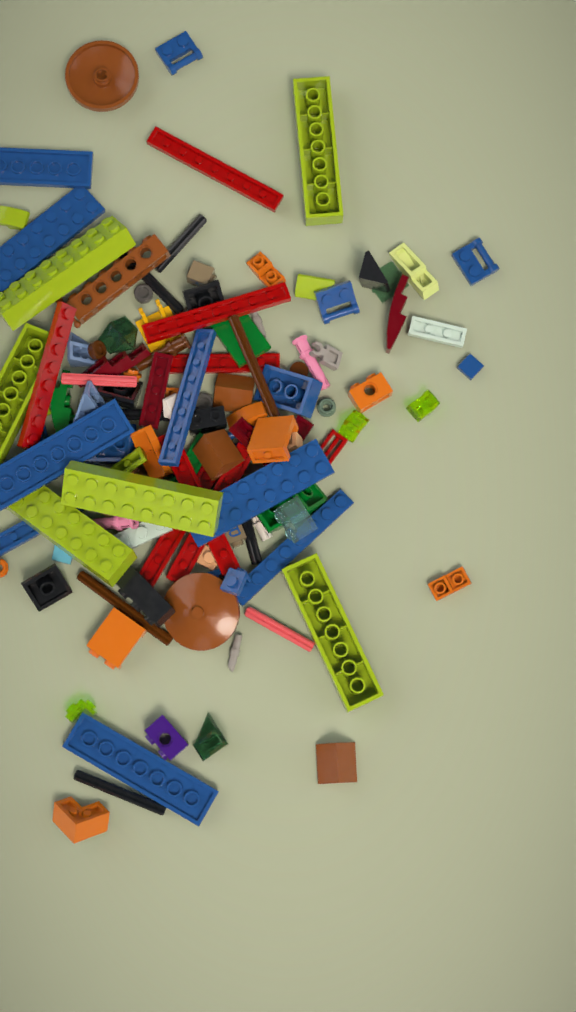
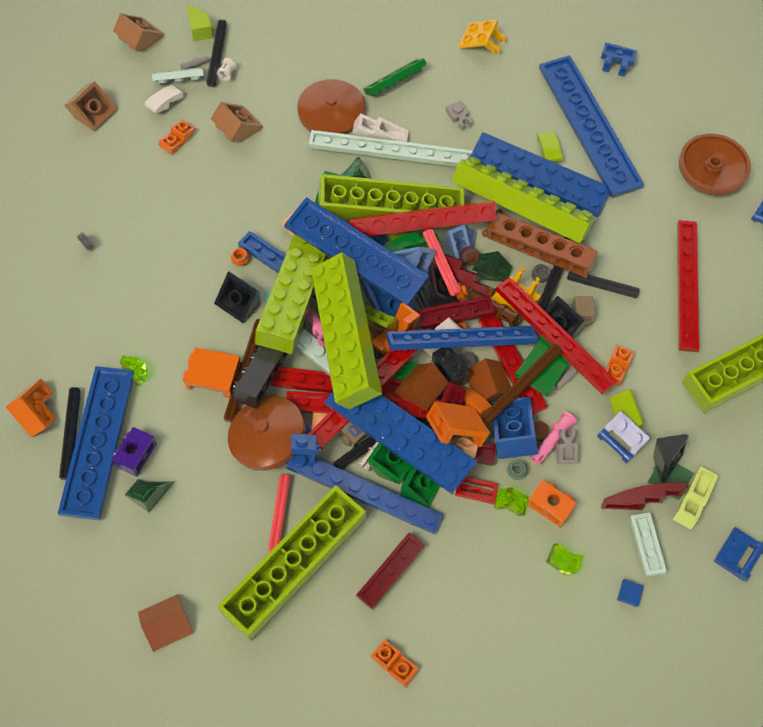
camera: 70 degrees right, 15 degrees down
(234, 652) = (240, 481): light grey piece -> none
(295, 520) = (389, 477): clear light blue brick -> none
(371, 554) = (390, 571): none -> dark red plate

